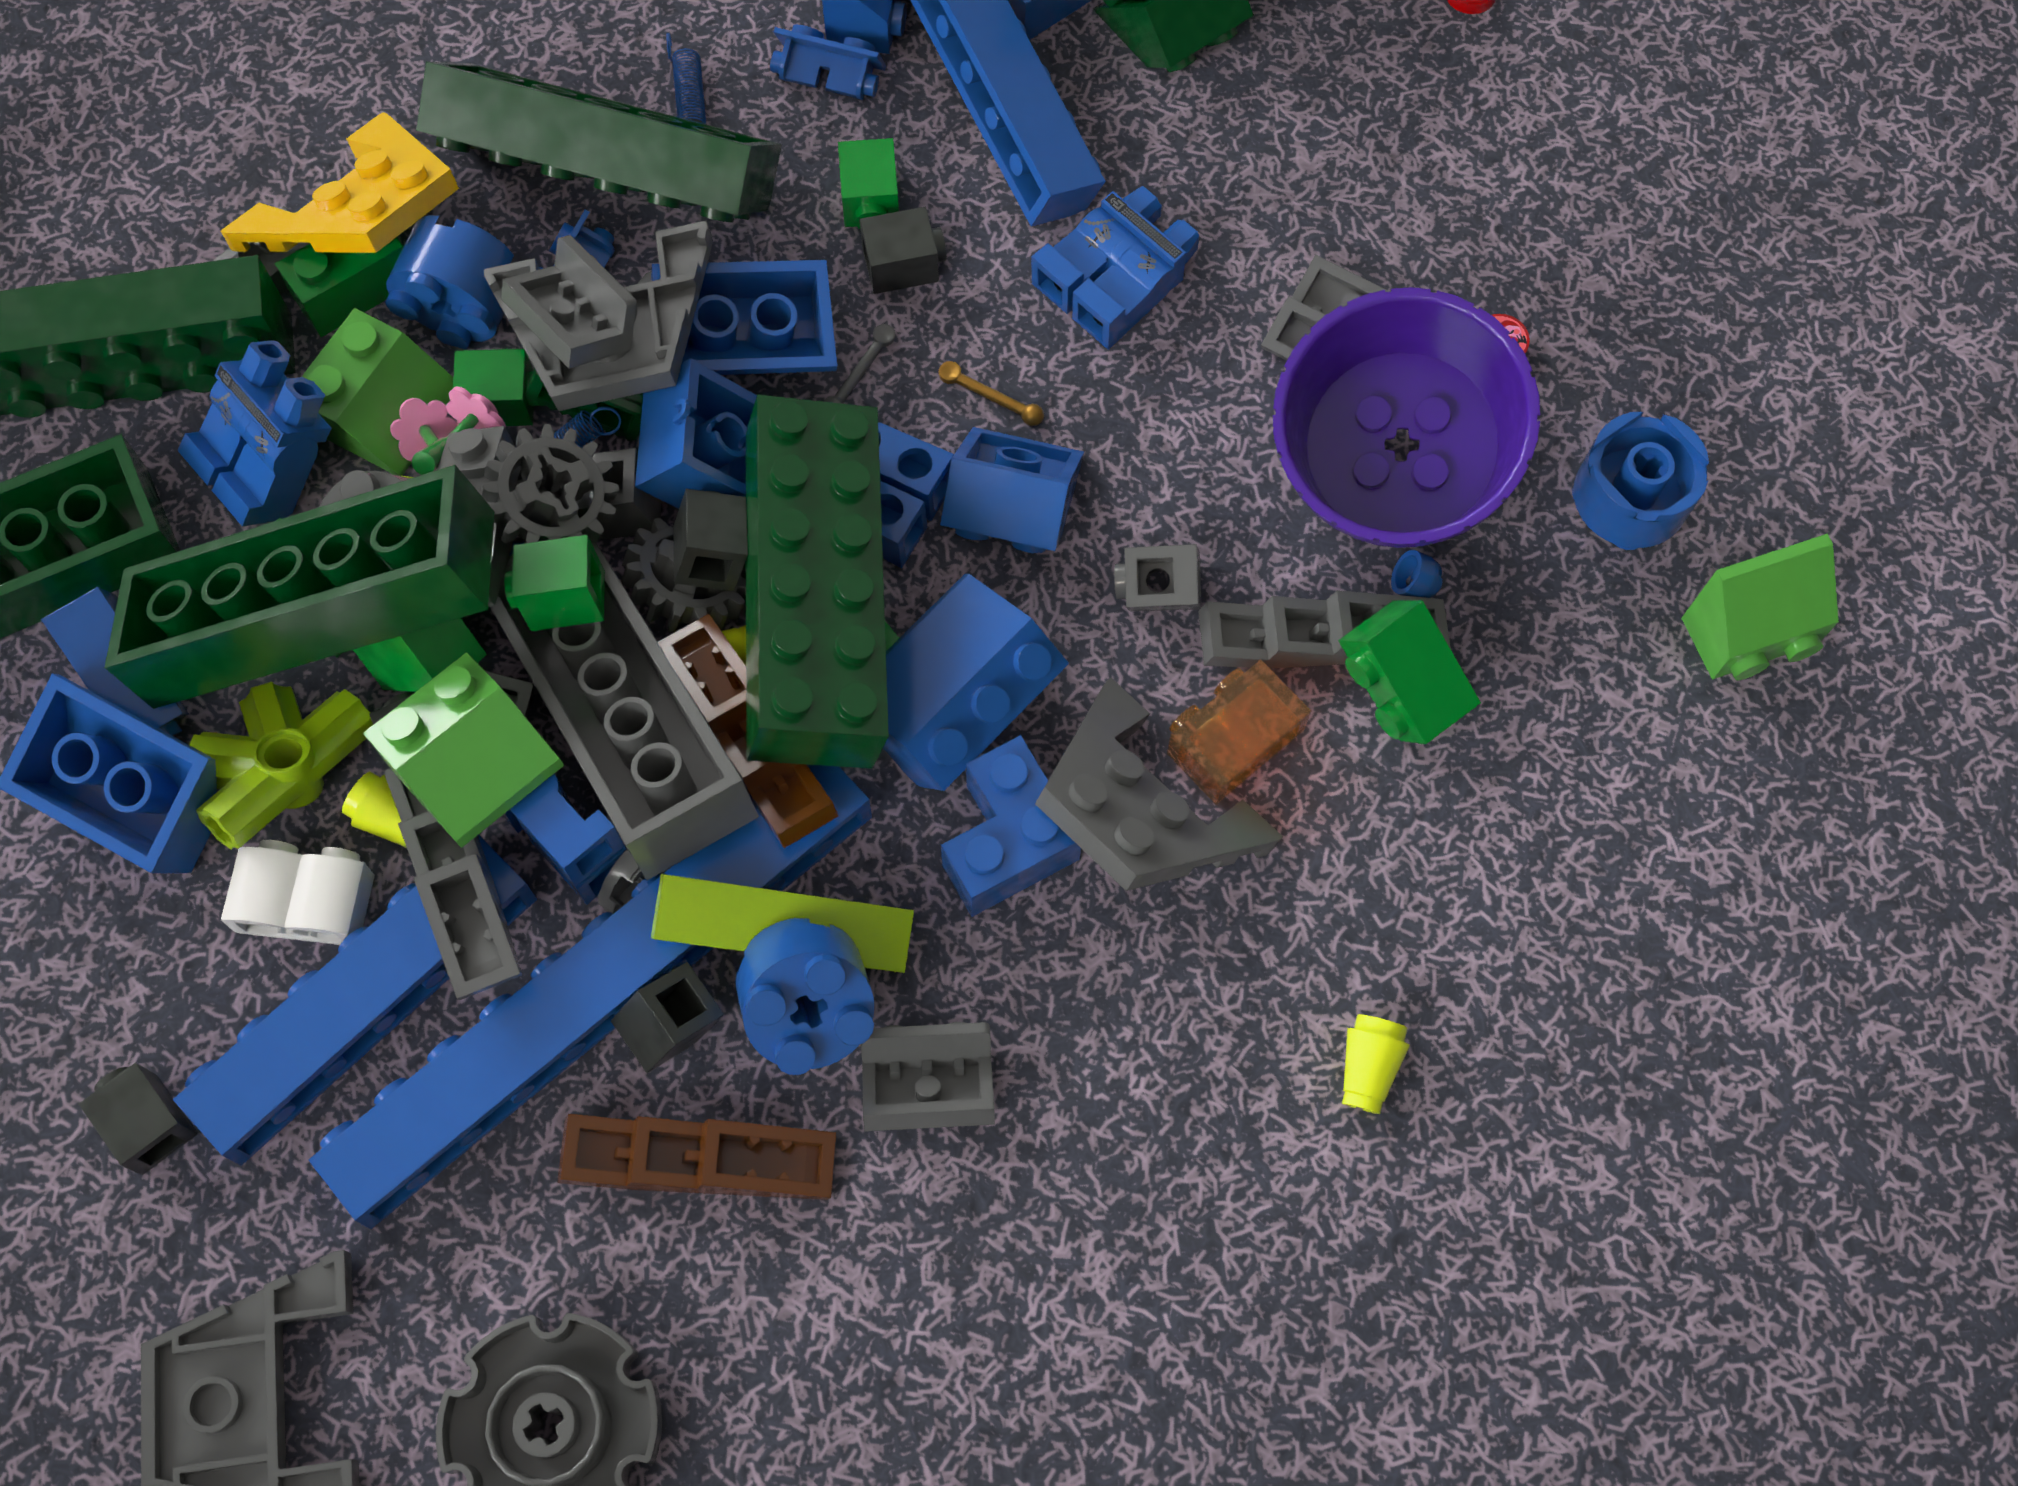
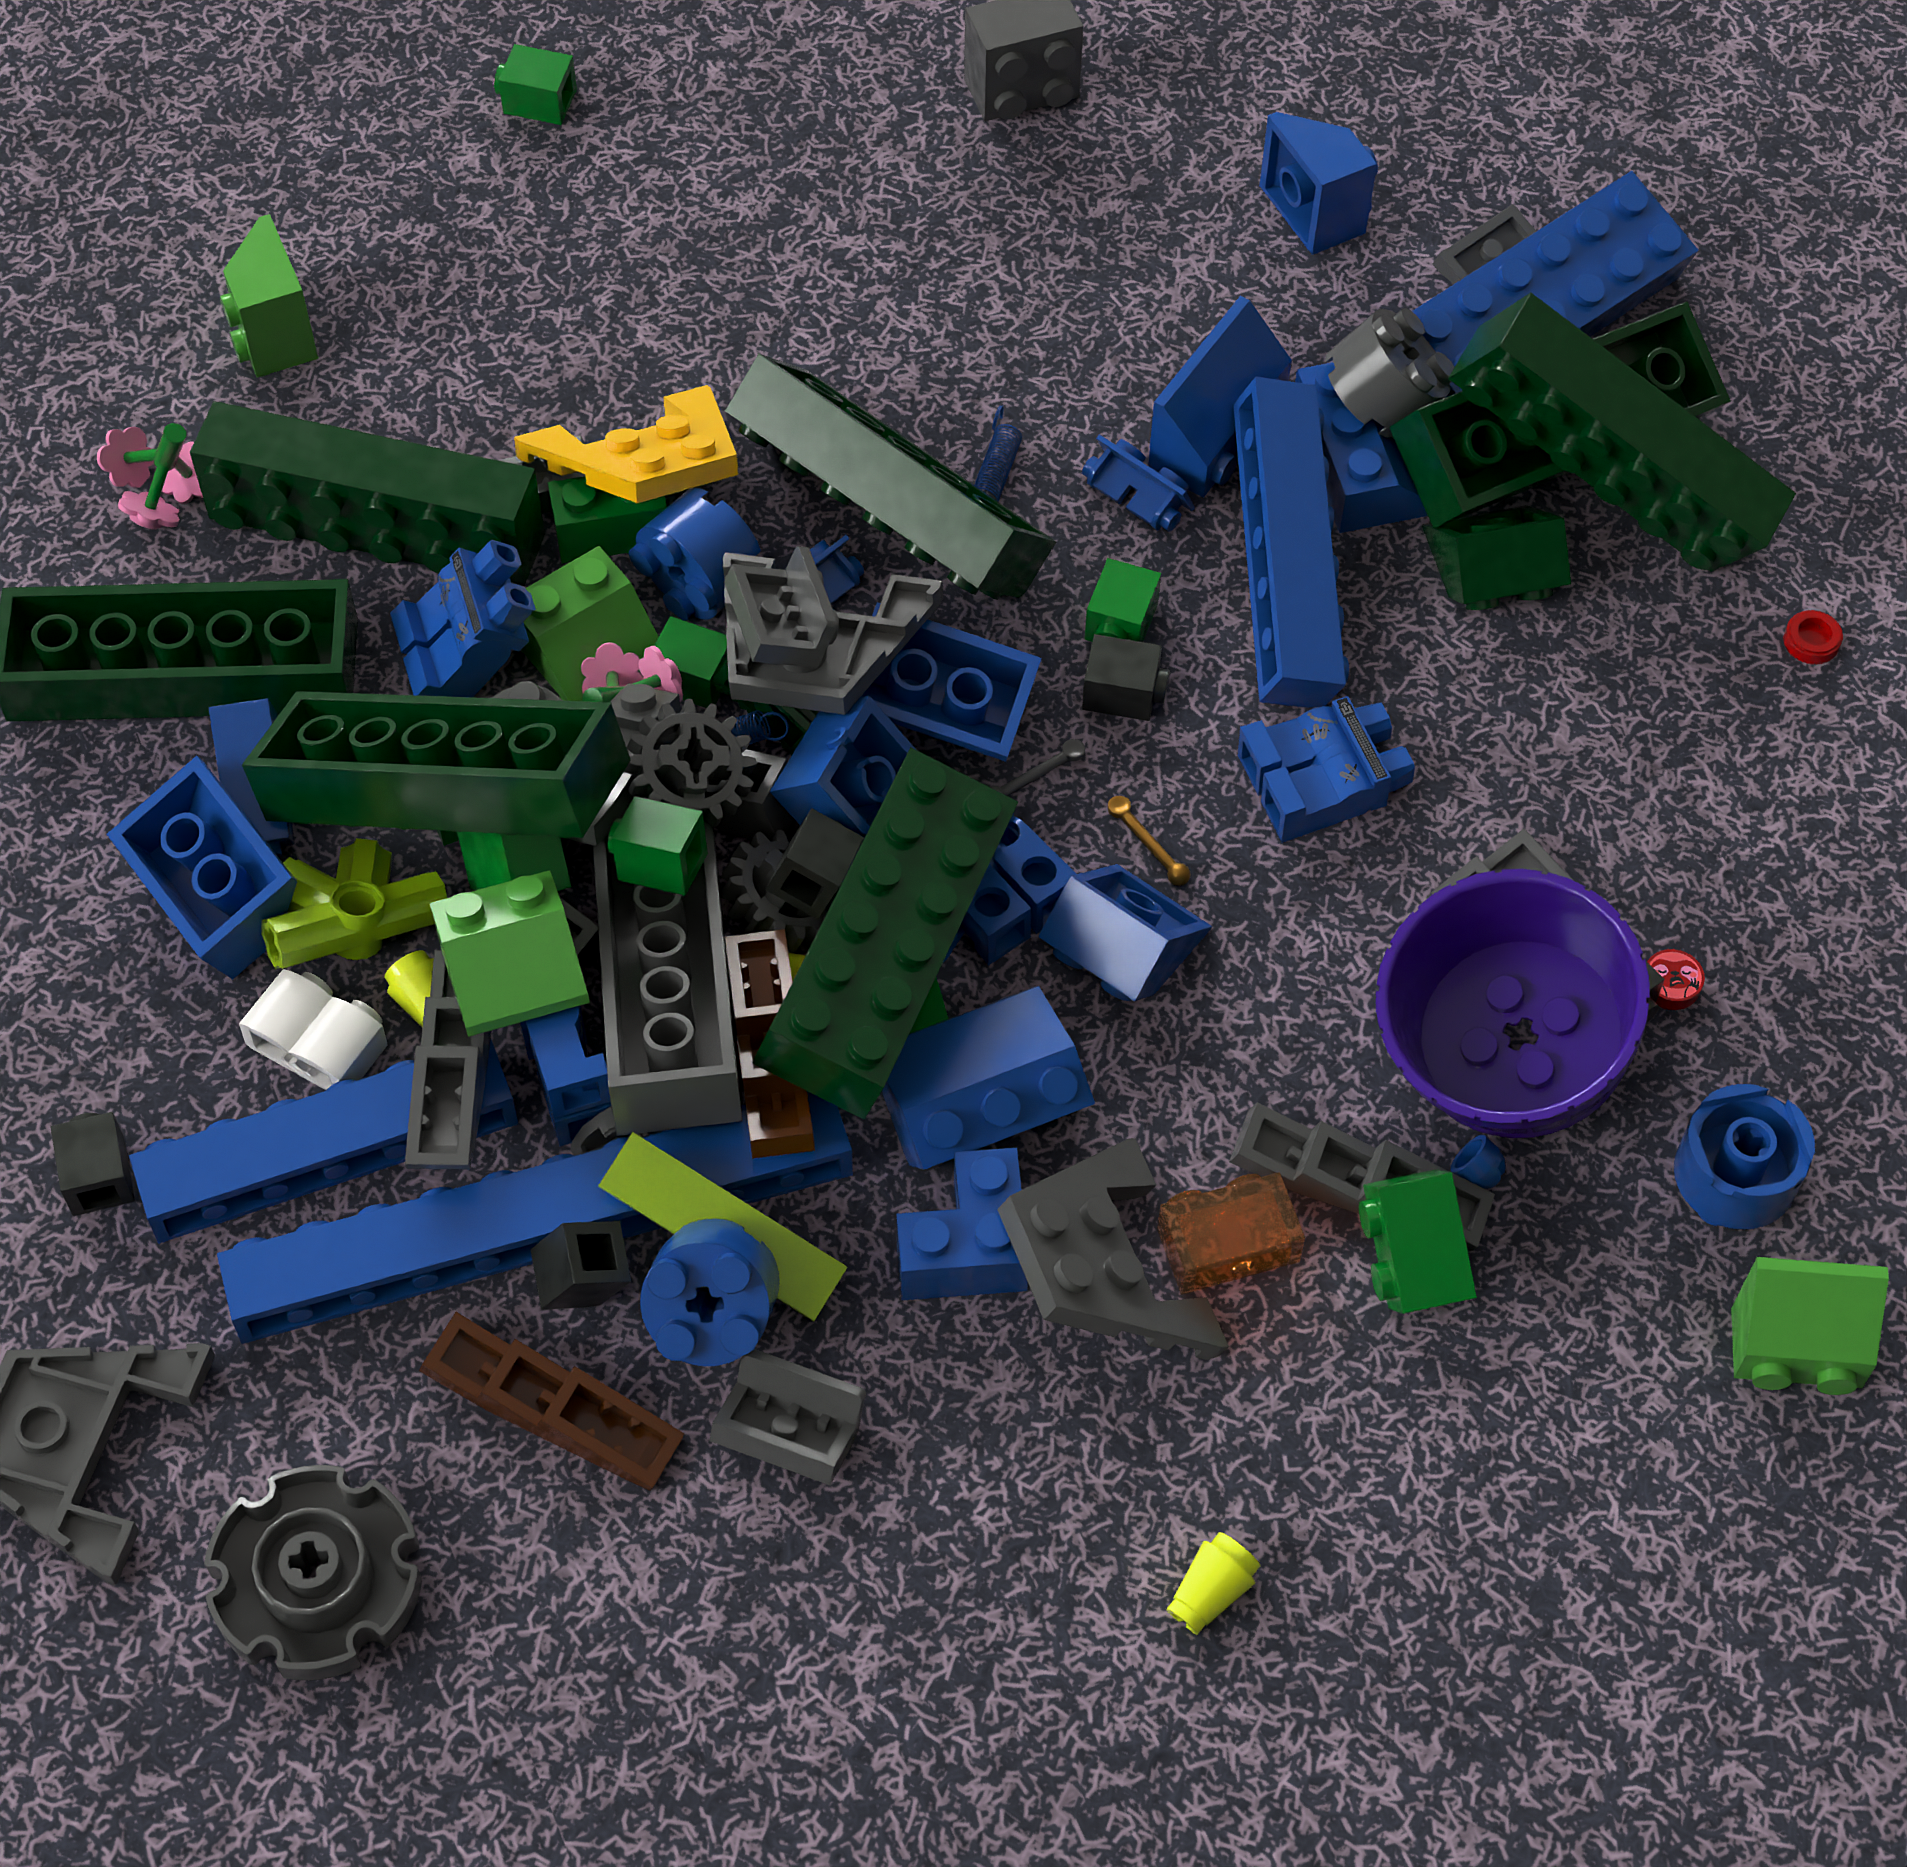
camera: 25 degrees right, 10 degrees down
(1178, 561) = (1212, 1045): dark grey brick -> none

